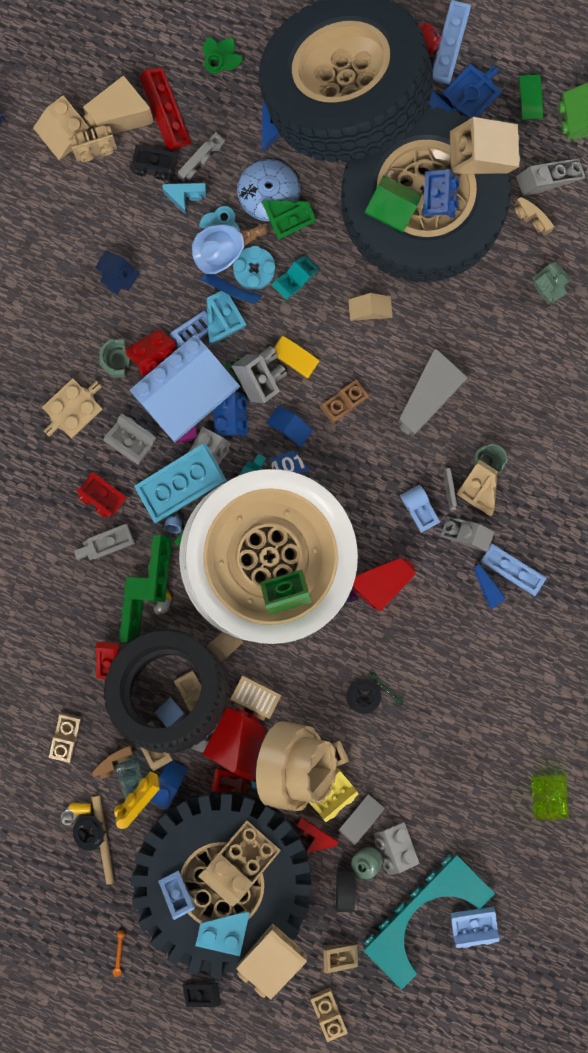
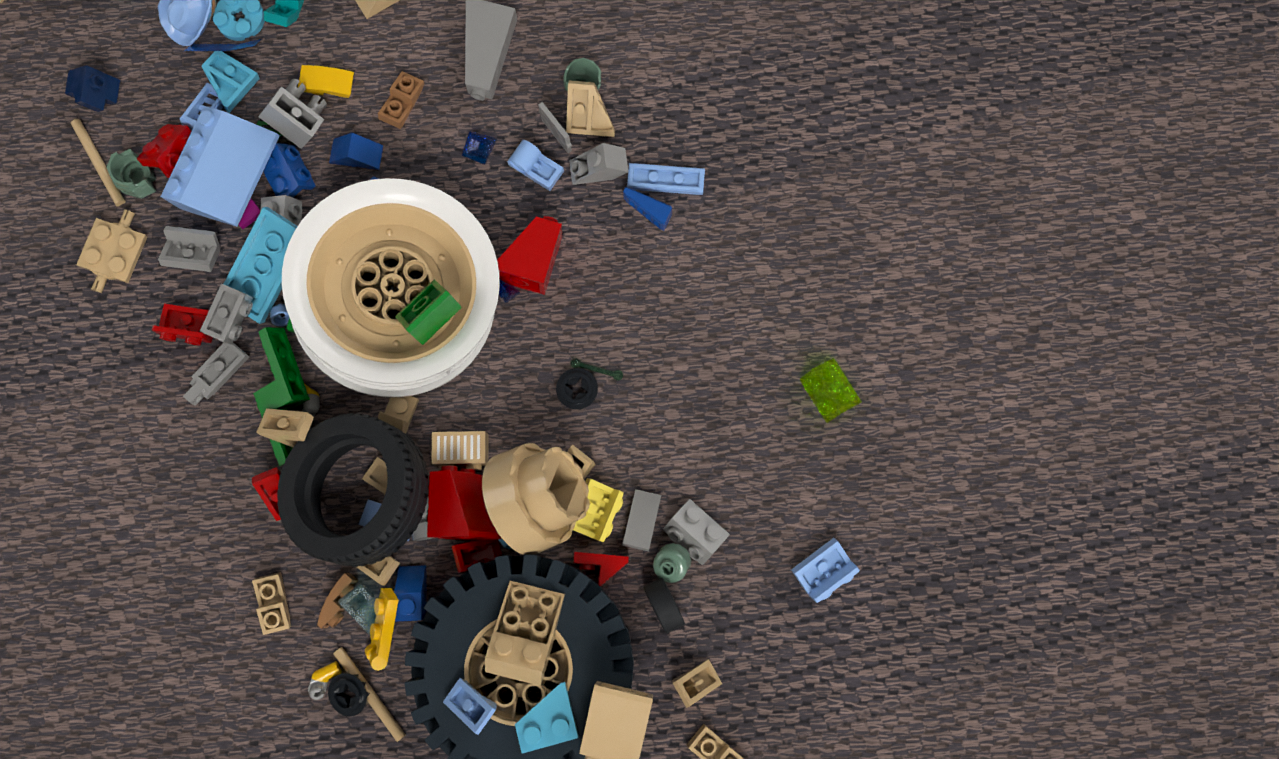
camera: 25 degrees left, 5 degrees down
(92, 324) = (97, 161): none -> tan bar
(135, 507) = (227, 314): none -> light grey bracket
(140, 617) = (285, 426): none -> tan slope
(385, 468) = (479, 145): none -> clear blue slope
(451, 880) = (742, 642): teal arch -> none

